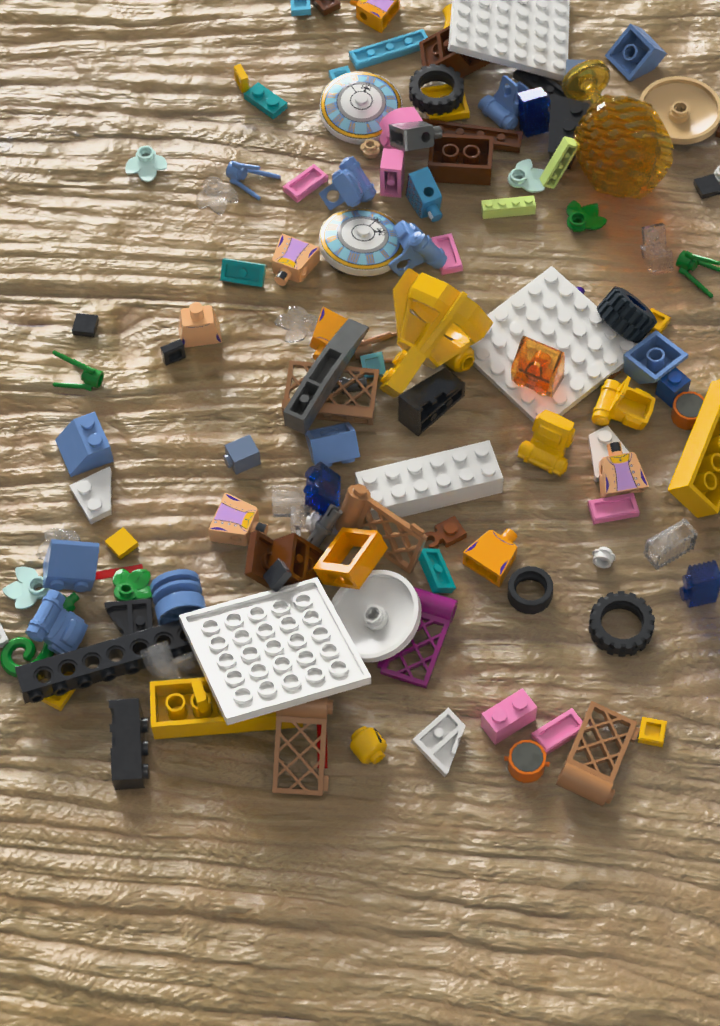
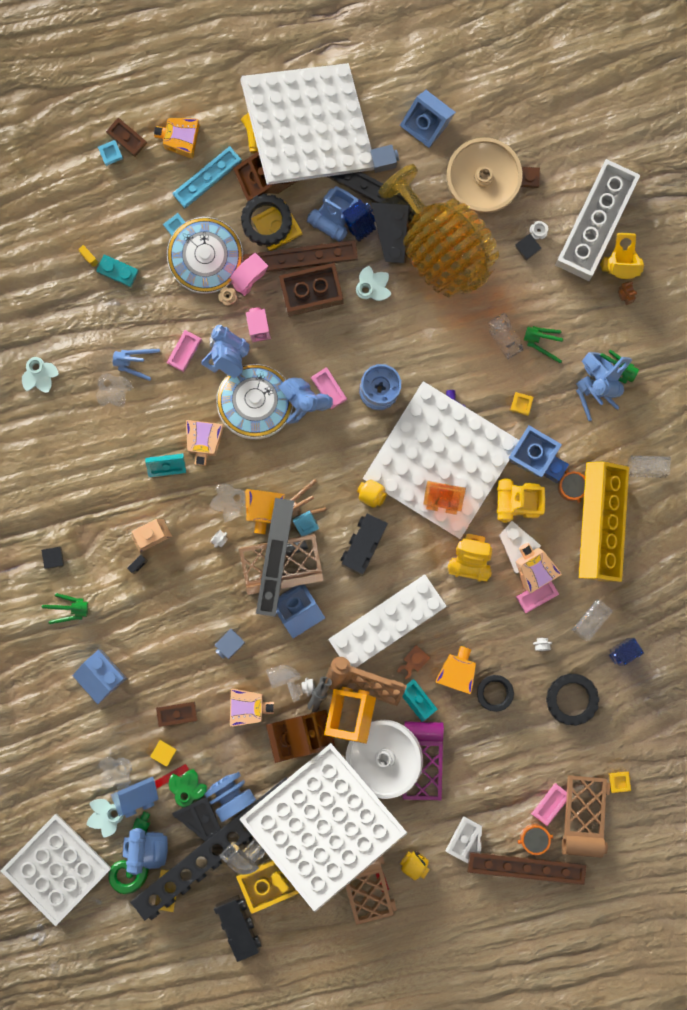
camera: 15 degrees left, 25 degrees up
(94, 495) = (124, 716): white wing -> none
(153, 507) = (176, 714): none -> reddish brown plate
(272, 354) = (219, 539): none -> white plate
(277, 575) = (301, 757): black tile -> none
(322, 488) = (306, 660): clear blue brick -> none
(413, 135) = (266, 289): dark grey torso -> none
(424, 194) = (289, 333): dark azure torso -> none
(444, 314) = (357, 488): yellow plate -> none
(502, 258) = (382, 376): none -> medium blue wheel
(505, 787) = (526, 868): none -> reddish brown plate
(508, 207) = (366, 323): yellowish green piece -> none
(508, 716) = (511, 808): bright pink brick -> none
(558, 162) = (398, 272): yellowish green piece -> none
(584, 217) = (433, 310): green plate -> none
(626, 314) = (500, 417): black wheel -> none

